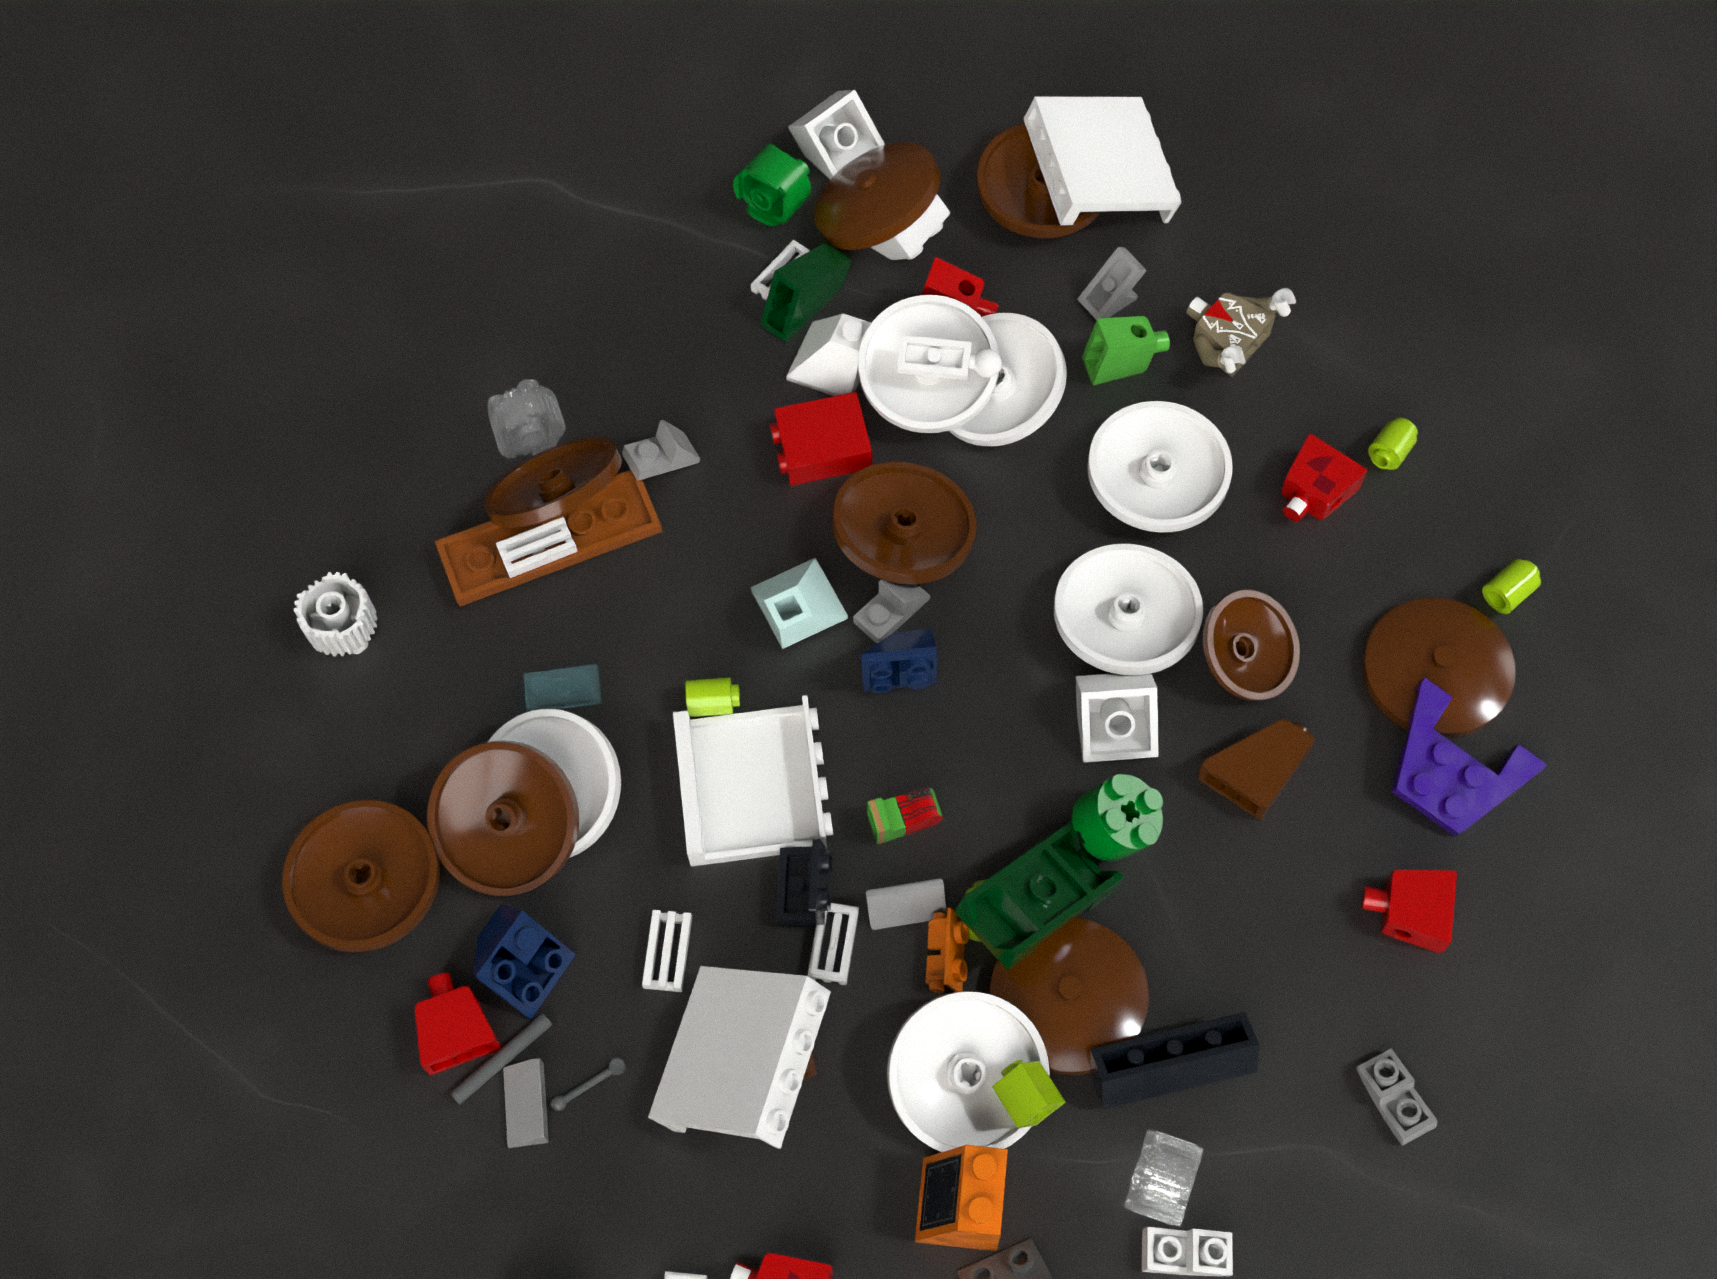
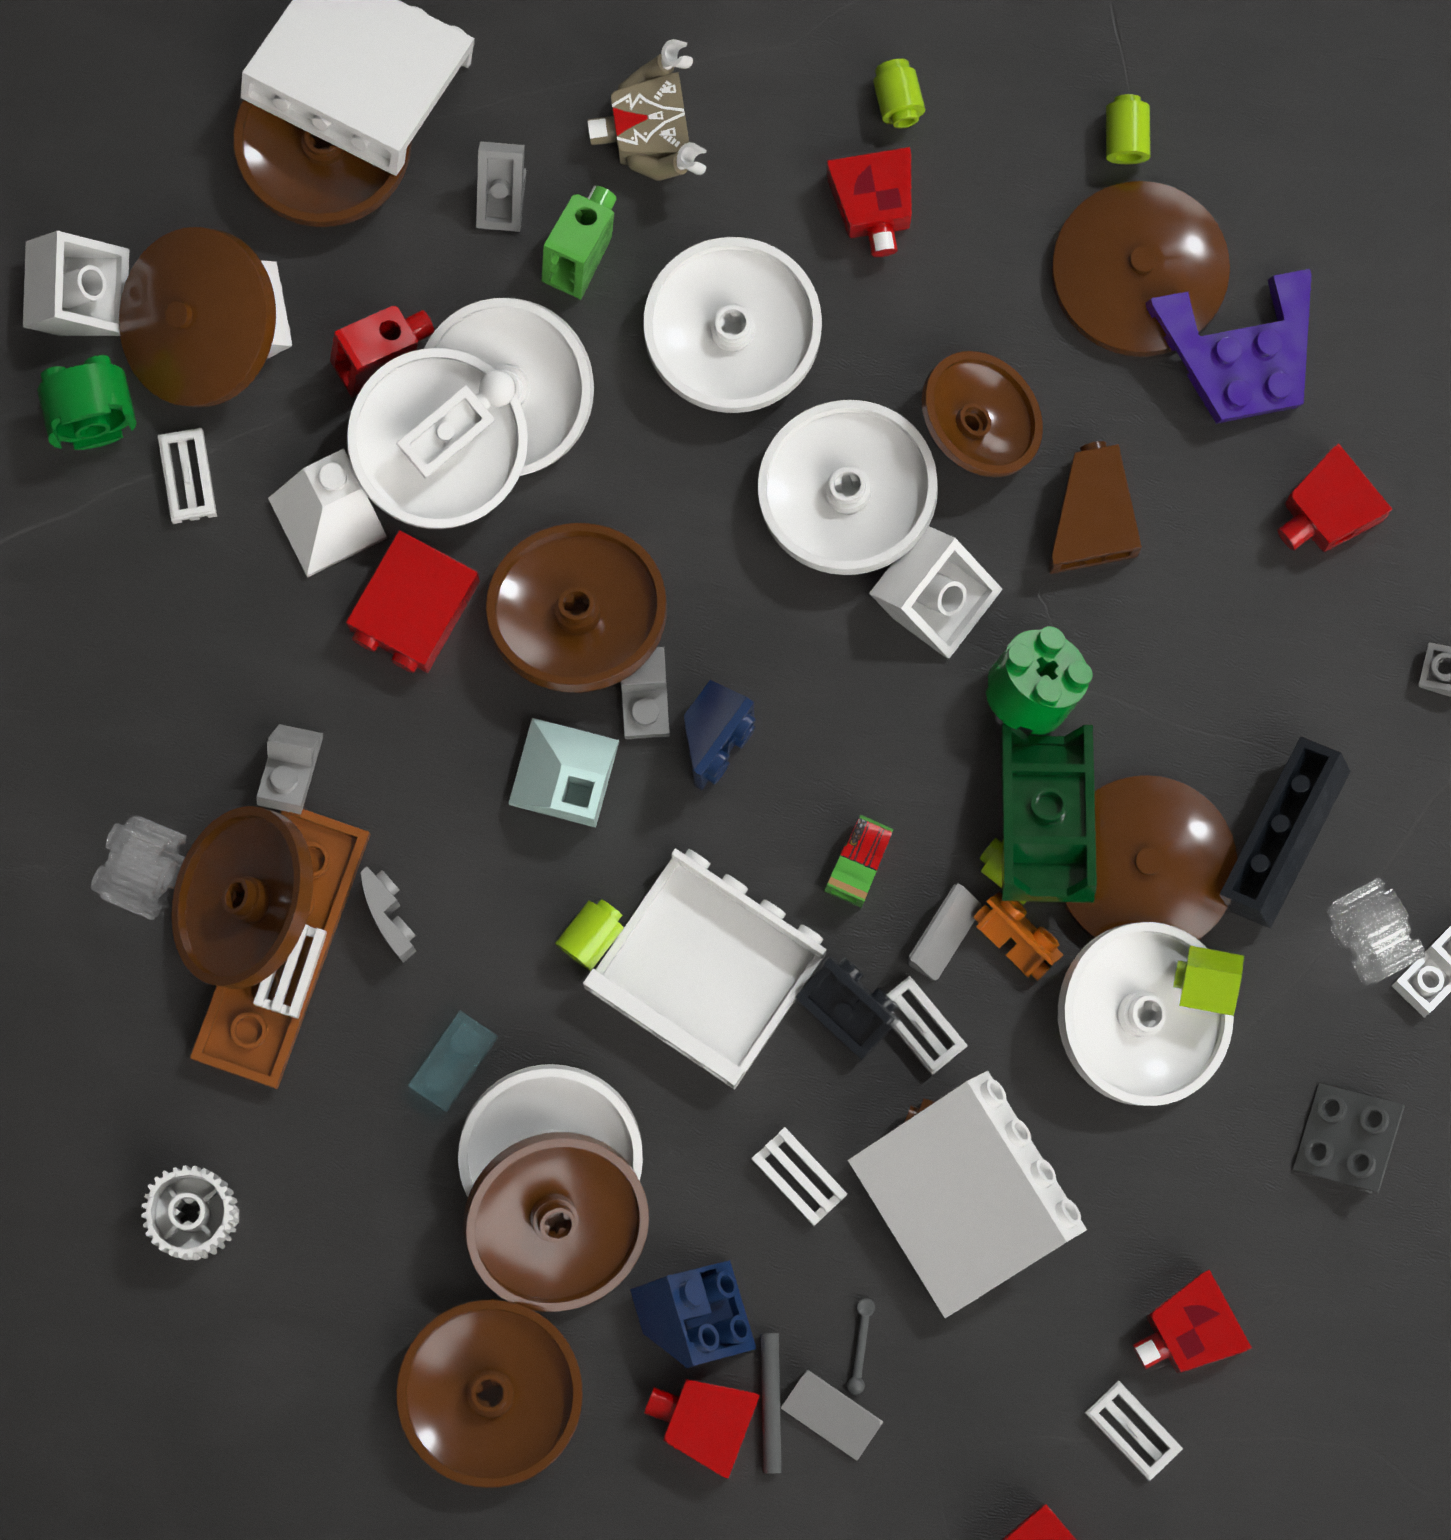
camera: 50 degrees left, 15 degrees up
(620, 571) = (379, 894): none -> light grey slope
(803, 289) = (232, 477): dark green slope -> none
(962, 1198) = (1247, 1113): orange slope -> none

